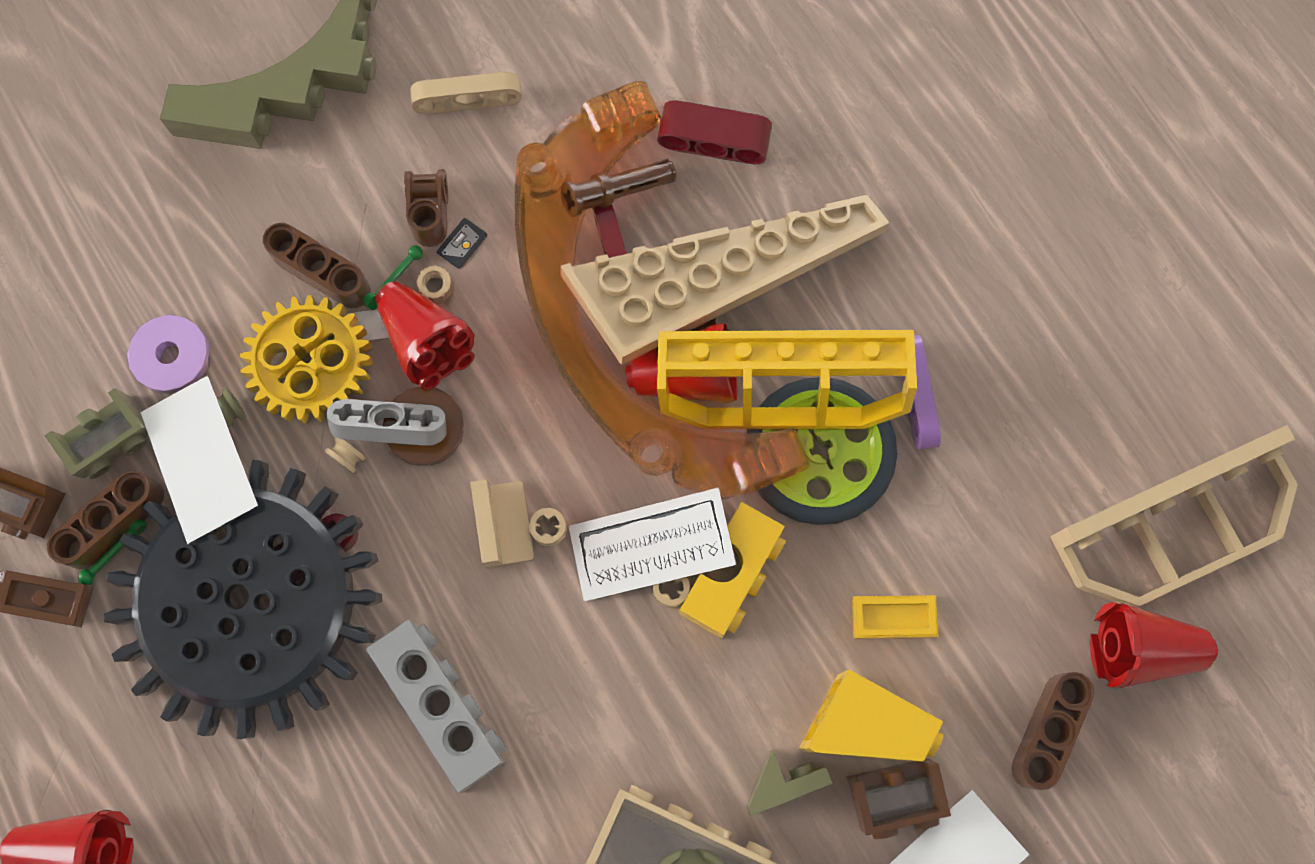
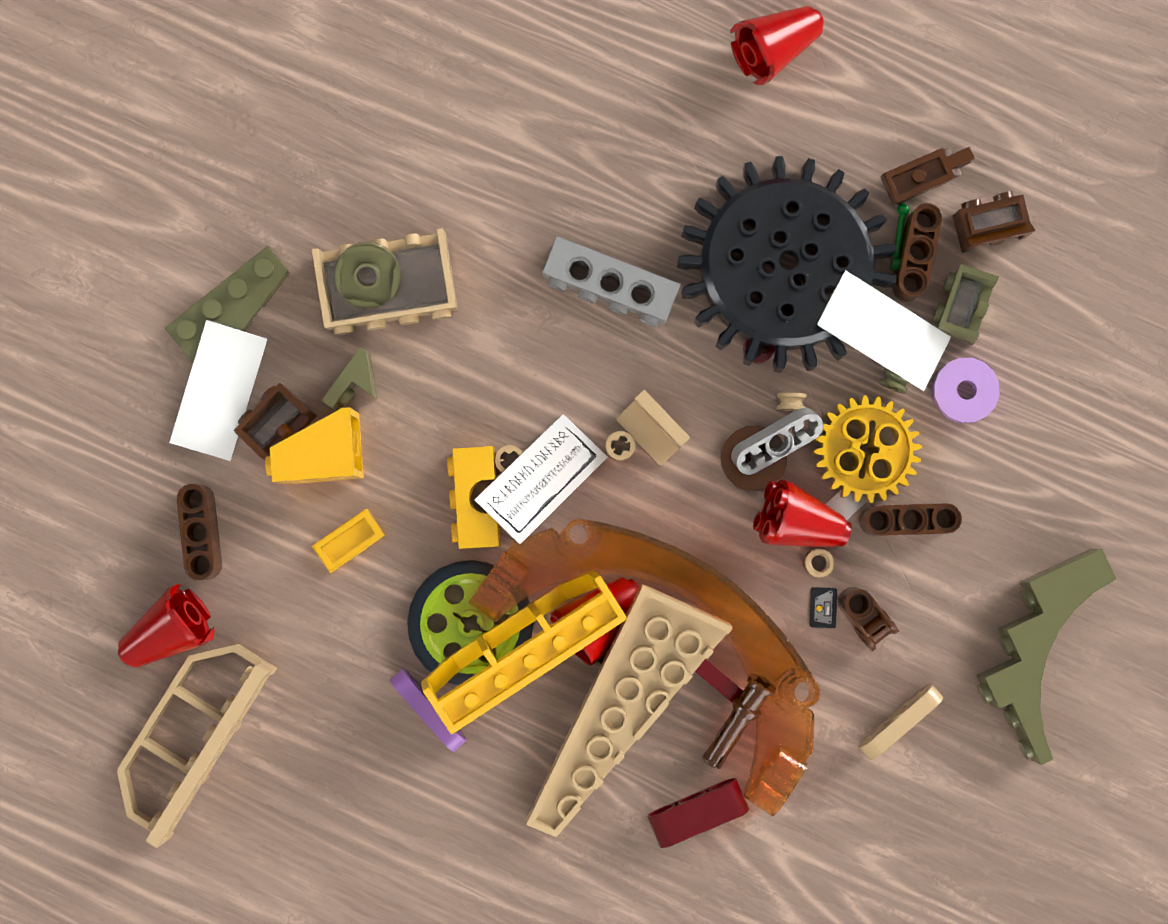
camera: 150 degrees right, 10 degrees up
(414, 253) = (850, 577): green hinge -> none

